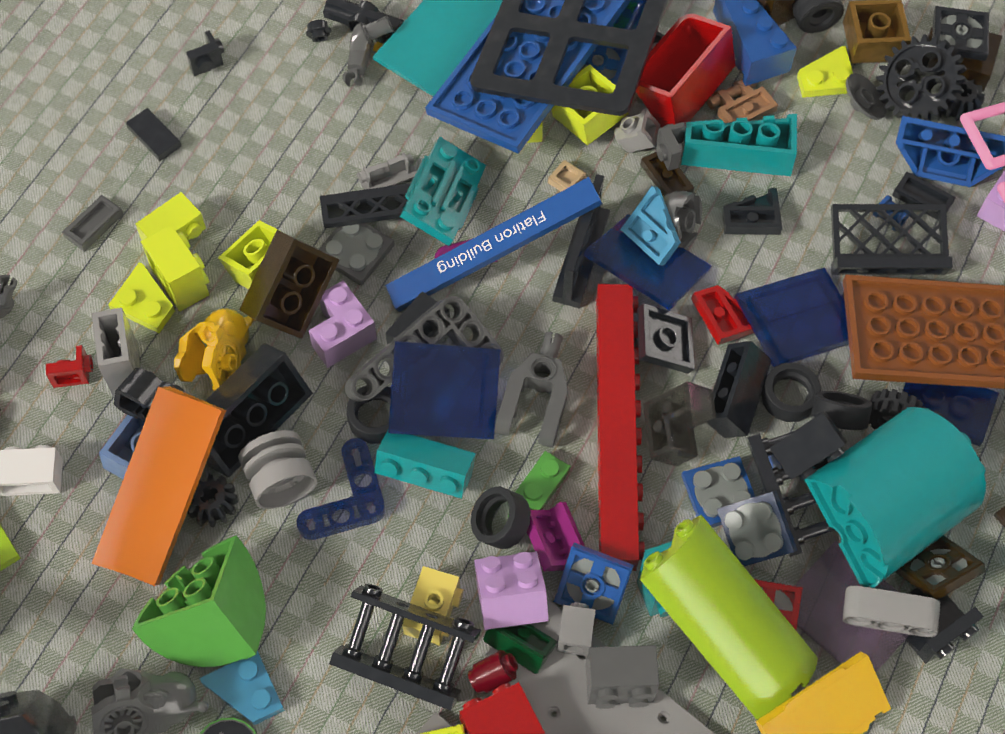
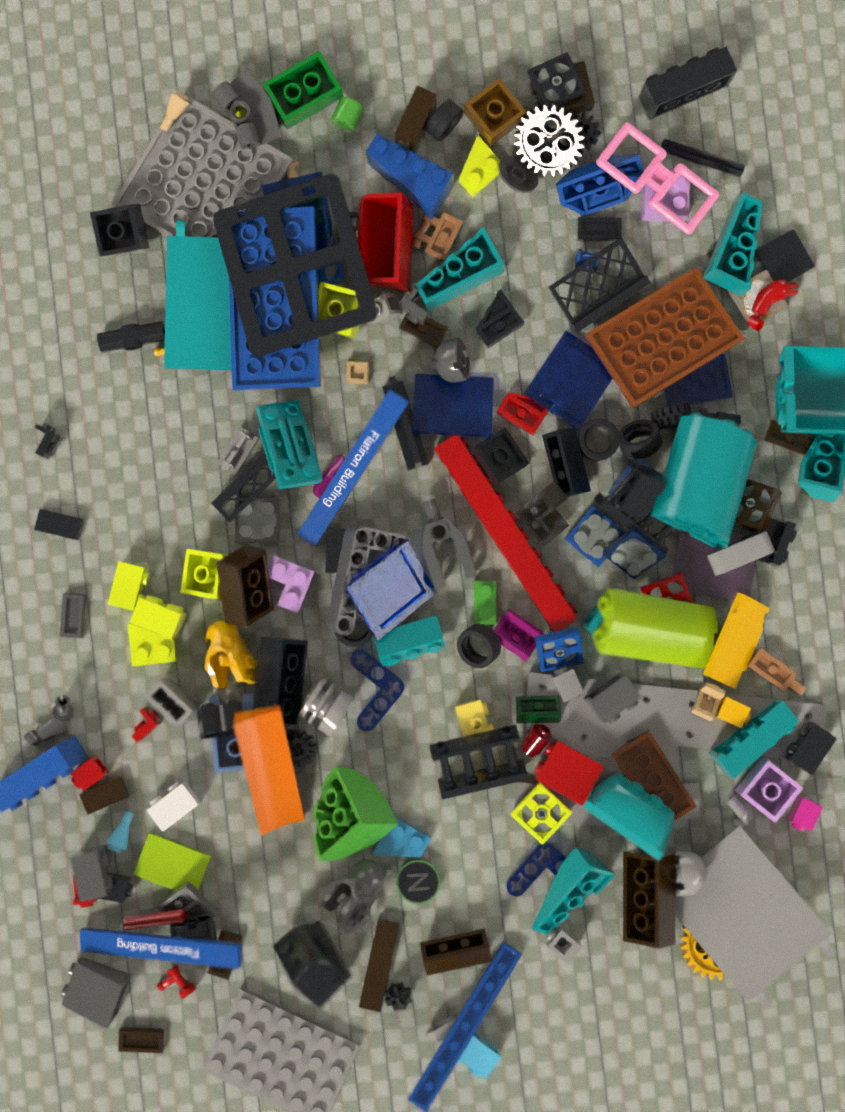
camera: 35 degrees left, 25 degrees up
(318, 30) = (107, 367): black plate -> none
(360, 48) = (148, 364): dark grey arm -> none
(511, 590) = (516, 687): lavender brick -> none
(652, 227) = (444, 384): dark azure wing -> none

